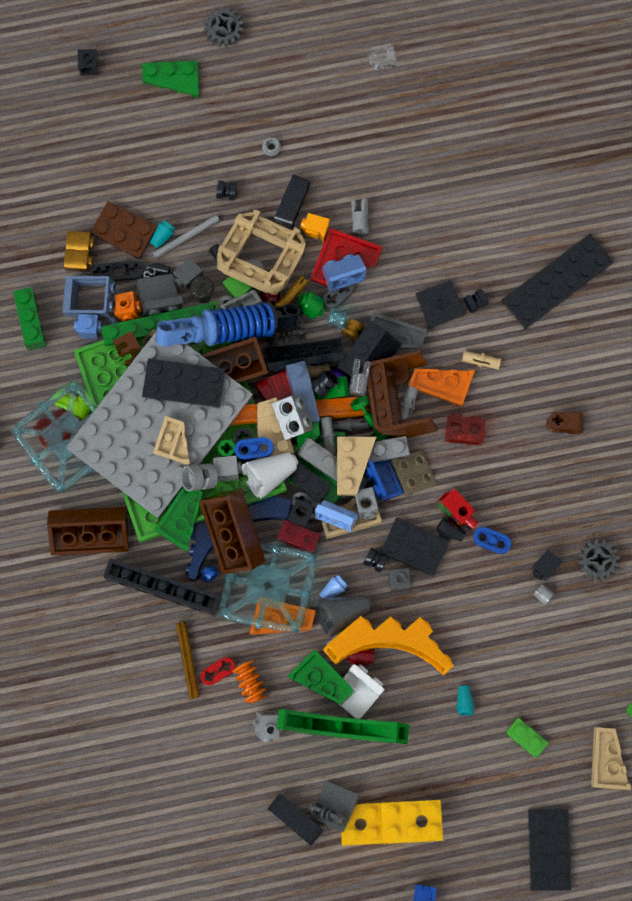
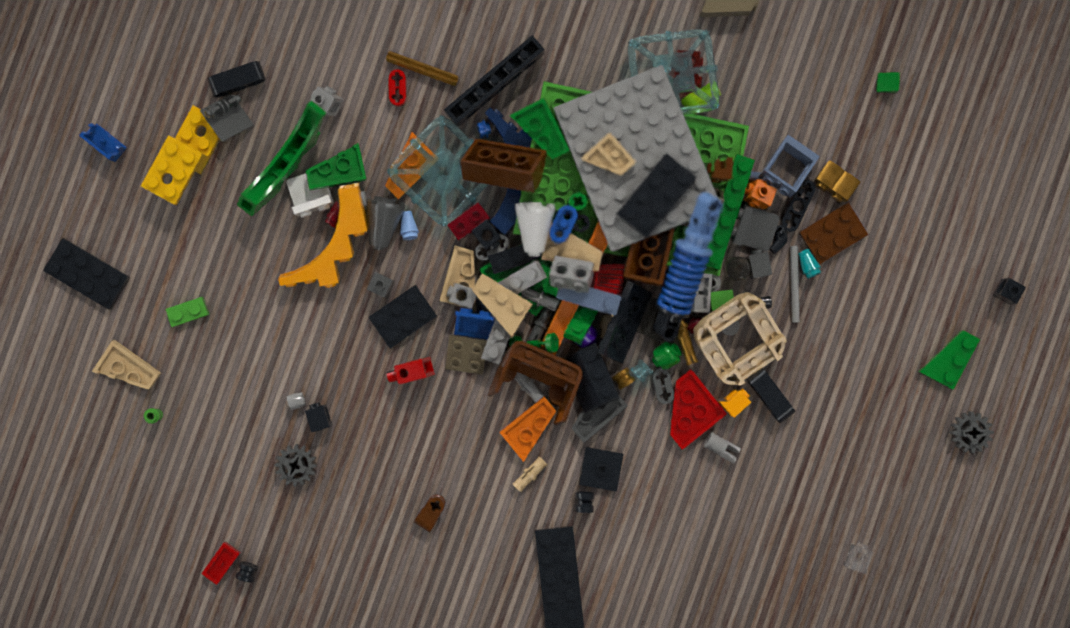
camera: 120 degrees right, 10 degrees up
(29, 319) = (811, 107): green arch -> none
(88, 326) = (763, 150): medium blue brick -> none
(88, 530) = (582, 47): reddish brown slope -> none
(199, 477) = (565, 161): light grey wheel -> none
(227, 468) = (561, 192): light grey brick -> none
(231, 191) = (811, 345): black wheel -> none
(249, 682) = (370, 108): orange piece -> none
(271, 141) = (839, 408): light grey plate -> none
(325, 383) = (584, 322): black wheel -> none
(336, 515) = (466, 264): light blue bracket -> none
(344, 272) = (677, 400): medium blue slope -> none
(359, 381) = (569, 352): clear hinge -> none
(375, 560) = (410, 276): black wheel -> none
(450, 530) = (398, 355): black cone -> none
(464, 436) = (473, 418): clear red brick -> none
(465, 703) = (247, 278): teal cone -> none
(491, 541) = (368, 385): blue plate -> none

